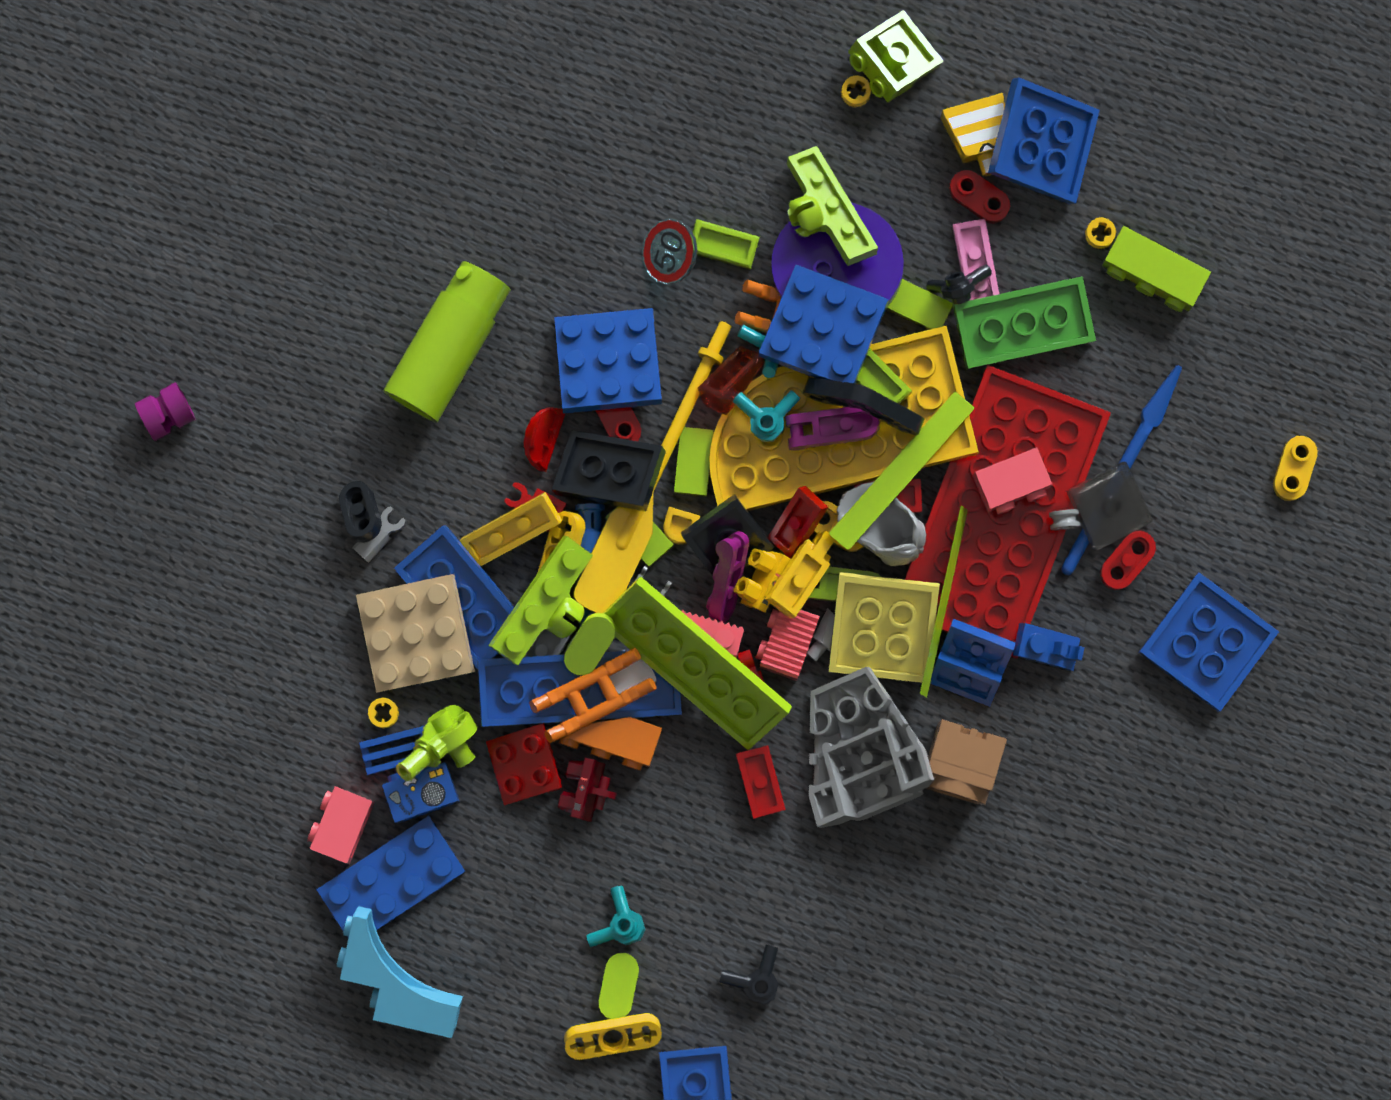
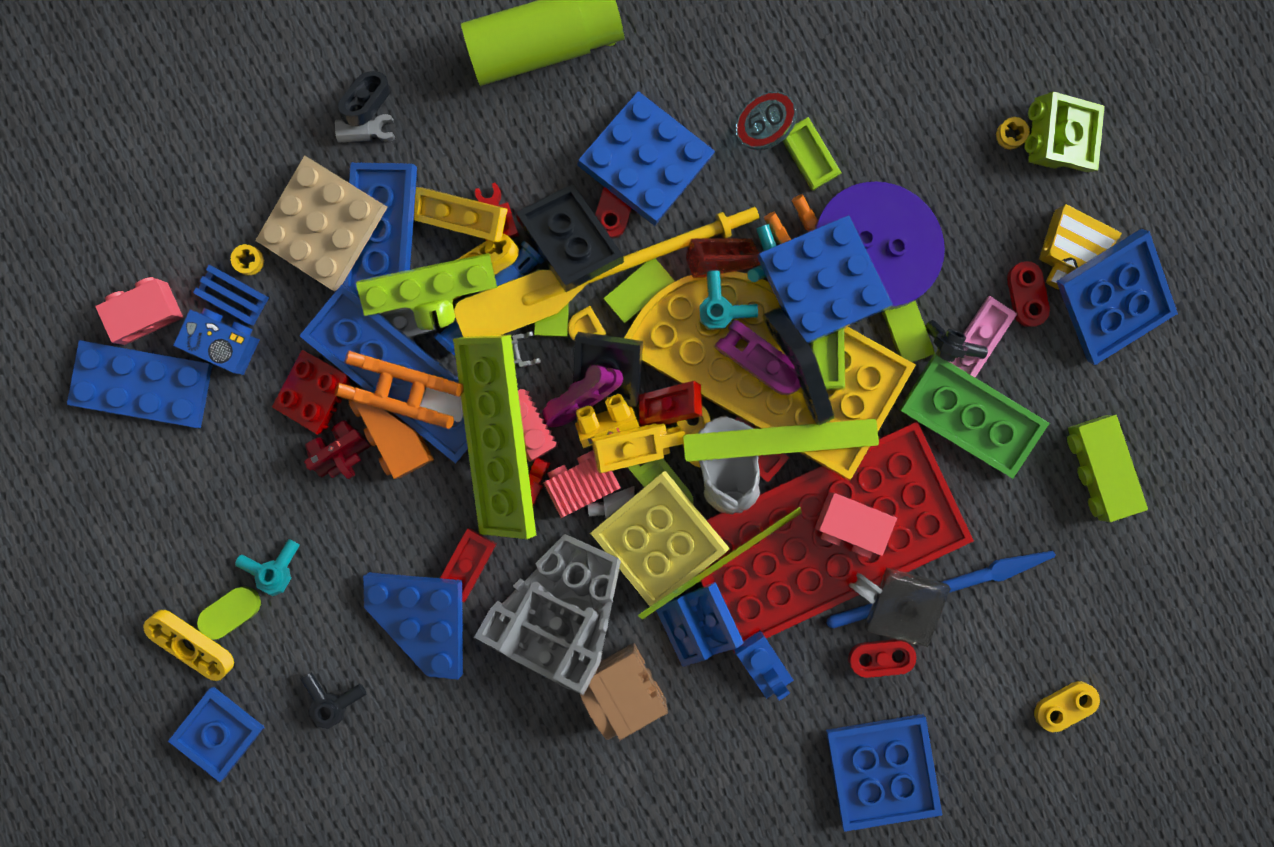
camera: 45 degrees right, 5 degrees up
(396, 995) = (63, 469): medium azure arch -> none
(442, 734) = (268, 314): lime pin -> none
(542, 436) = (547, 168): red plate -> none
(589, 644) = (431, 350): lime tile -> none
(764, 852) = (421, 618): none -> blue plate
(827, 208) = (911, 196): lime plate -> none
(1093, 226) = (1102, 403): yellow bush -> none

